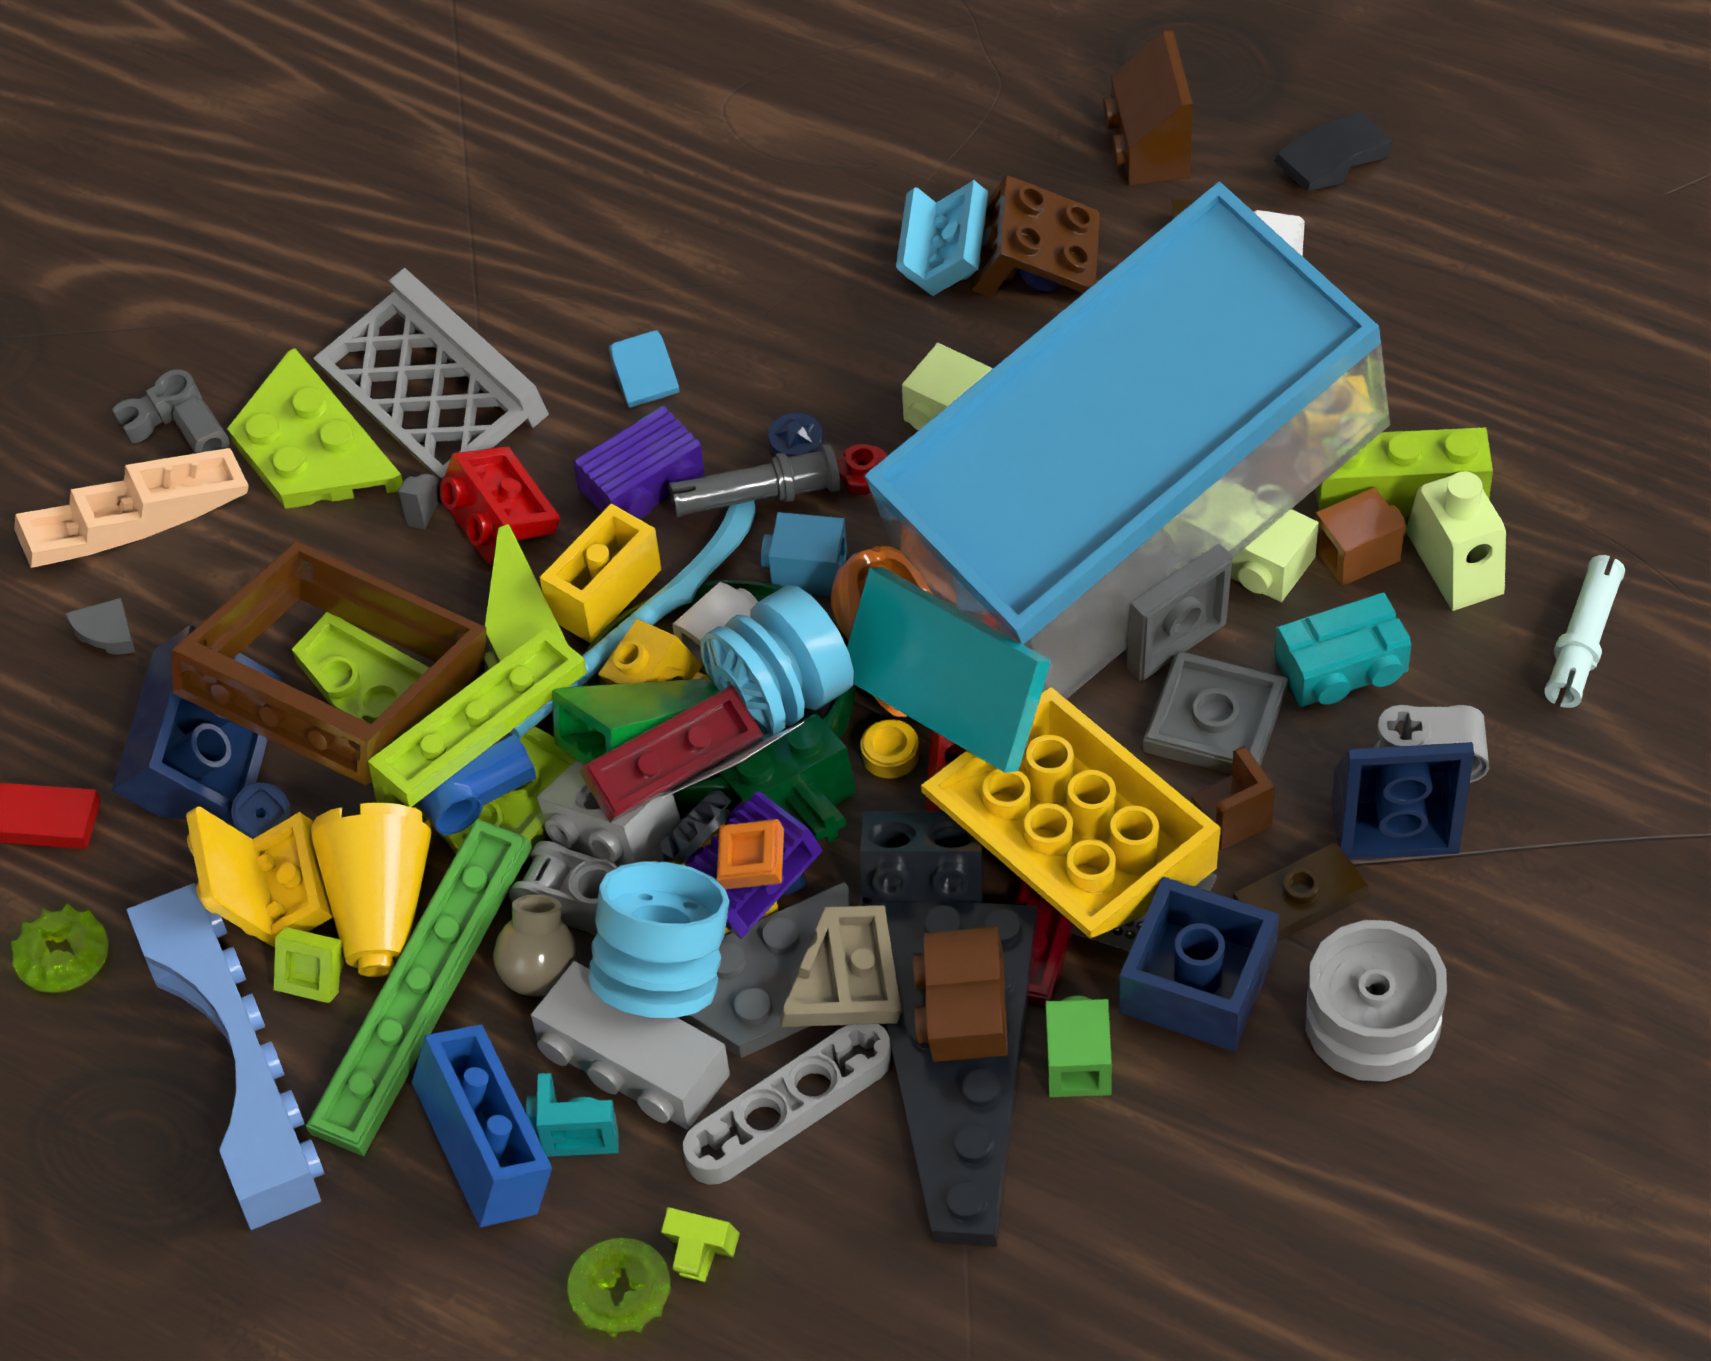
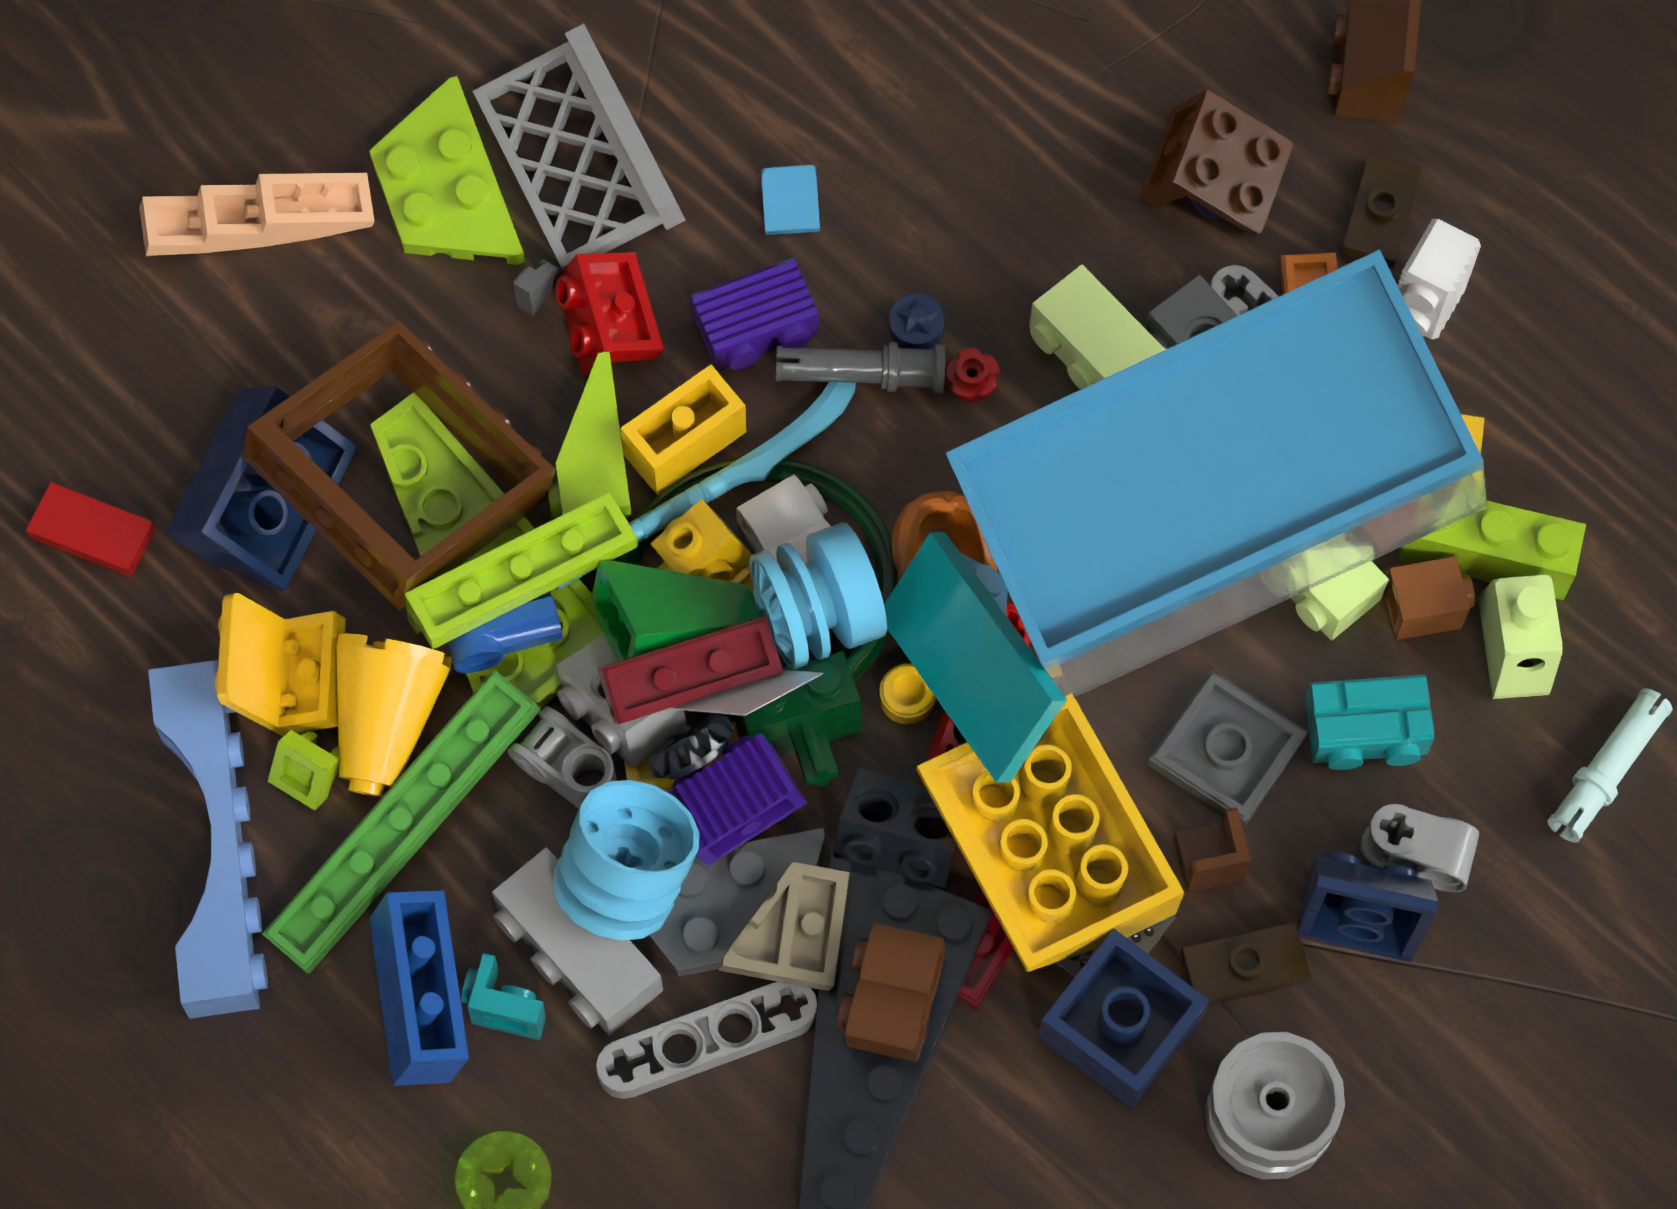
camera: 10 degrees right, 15 degrees up
(60, 970) = (76, 704): clear neon green gear -> none
(103, 627) = (200, 340): dark grey tile -> none
(176, 400) = (331, 103): dark grey bar -> none
(259, 809) = (298, 591): dark blue tile -> none
(534, 946) = (515, 818): dark tan piece -> none
(698, 1241) = (585, 1158): lime tile -> none
(750, 854) = (733, 801): orange tile -> none
(805, 551) = (887, 460): dark azure brick -> none
(942, 238) = (1126, 132): medium azure bracket -> none
(1078, 1047) = (987, 1065): bright green brick -> none
(1179, 612) = (1222, 641): dark grey tile -> none
(1329, 151) = (1550, 138): black slope -> none

